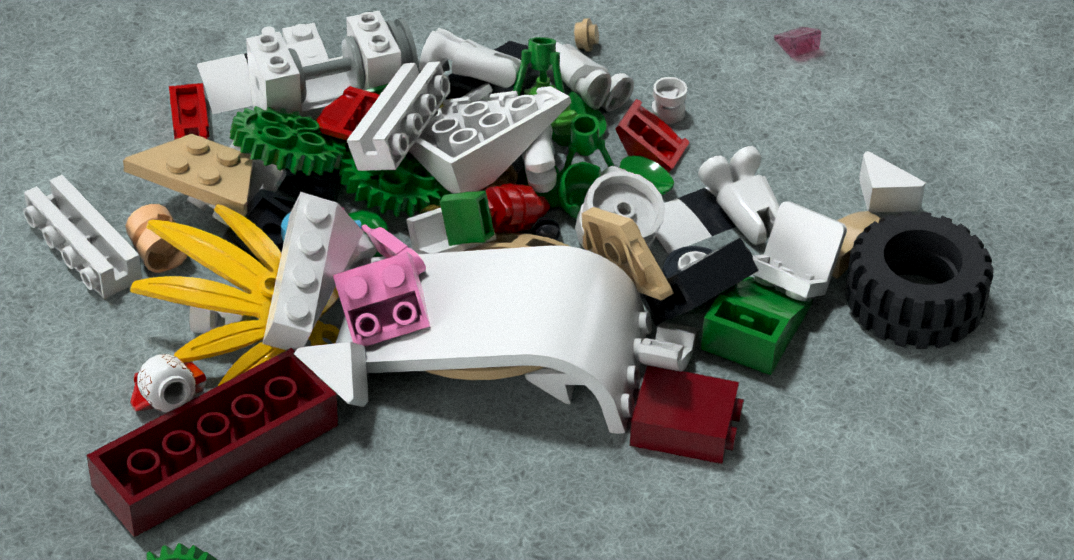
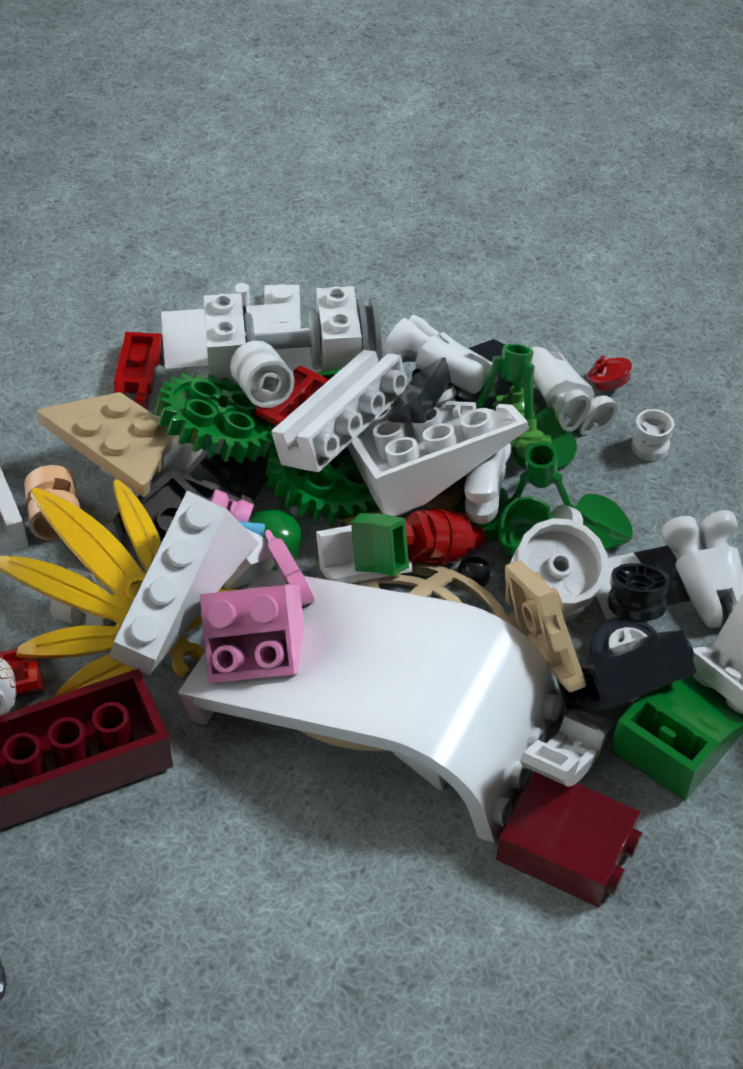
camera: 15 degrees right, 5 degrees up
(320, 96) = (262, 374): none -> white wheel
(340, 367) = (183, 707): white slope -> none
(466, 91) = (422, 394): none -> black slope
(586, 34) = (581, 343): tan plate -> none
(618, 56) = (610, 373): none -> red hat
(650, 137) = (620, 475): red slope -> none
(692, 223) = (638, 592): none -> black wheel

